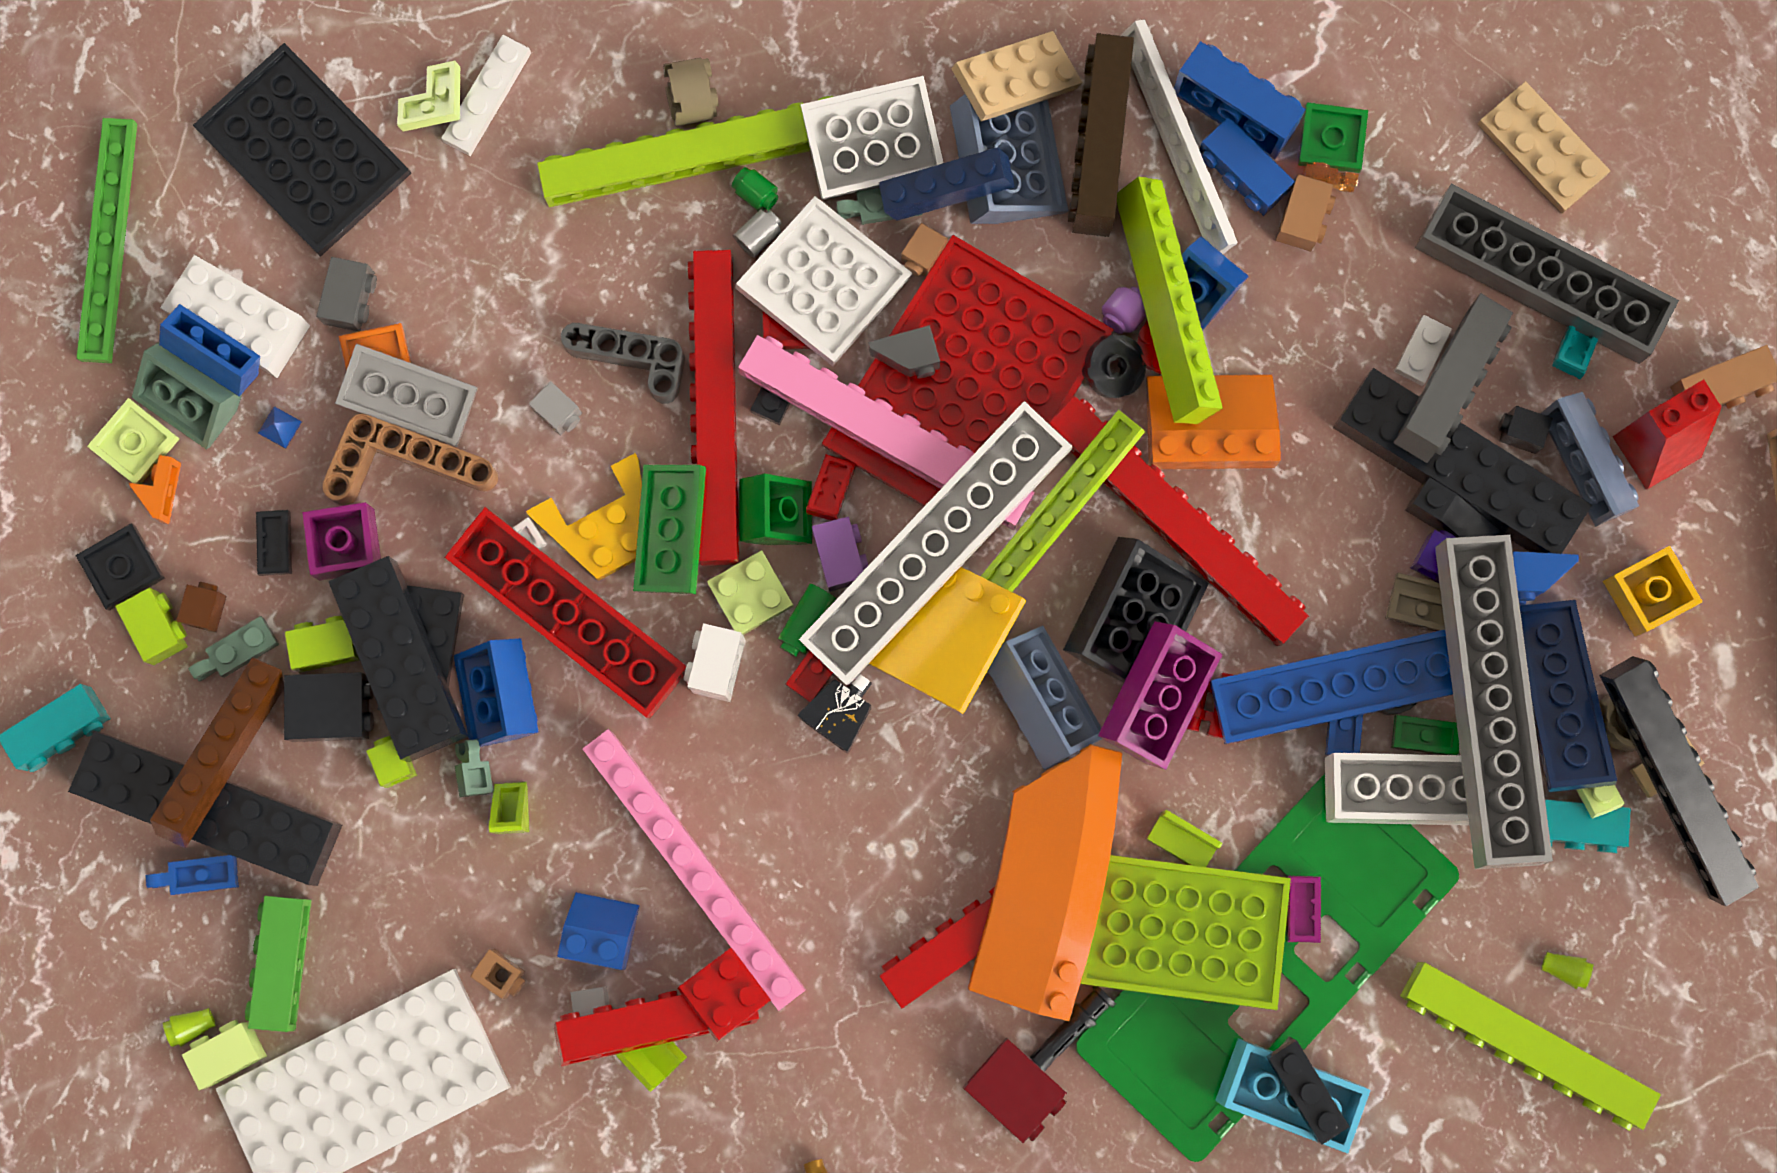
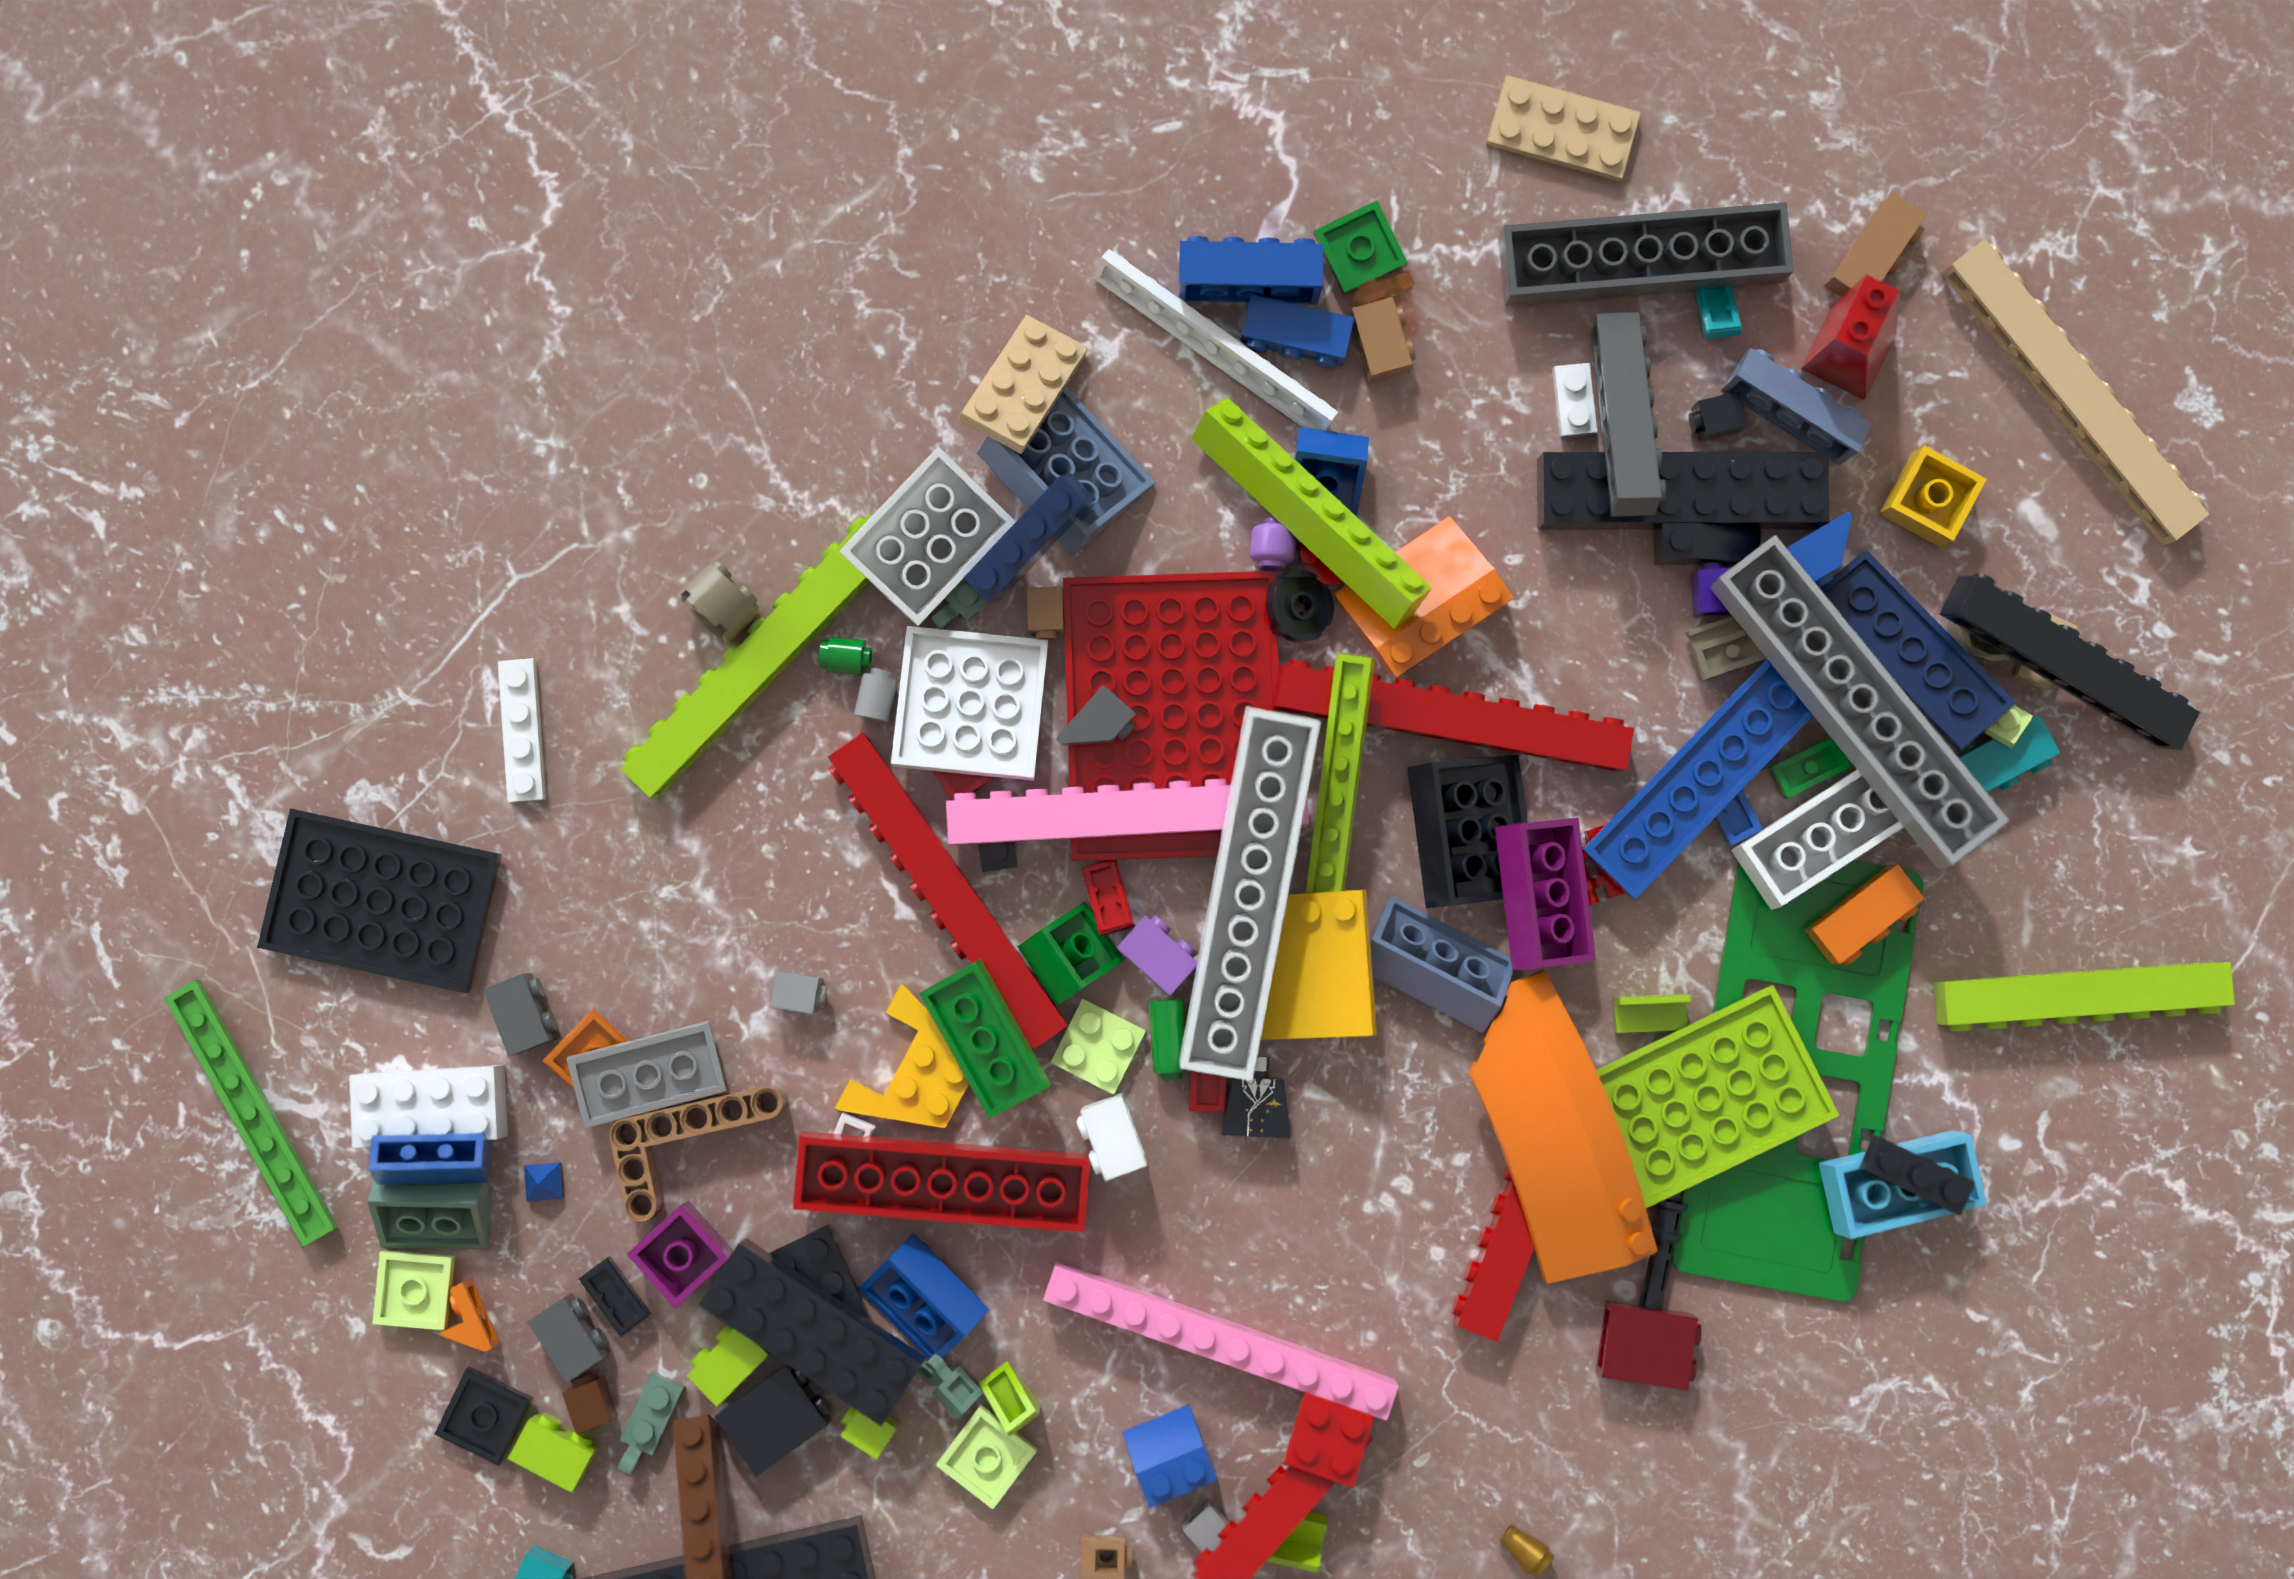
camera: 35 degrees left, 5 degrees up
(221, 549) = (570, 1336): none -> dark grey brick
(438, 104) = (482, 769): yellowish green plate -> none
(462, 841) = (986, 1457): none -> yellowish green plate
(622, 356) = (825, 898): dark grey beam -> none
(1100, 134) = (1143, 388): dark brown brick -> none
(1304, 910) = (1803, 1004): magenta plate -> none
(1396, 873) = (1865, 915): none -> orange brick
(1569, 969) = (2075, 899): lime cone -> none

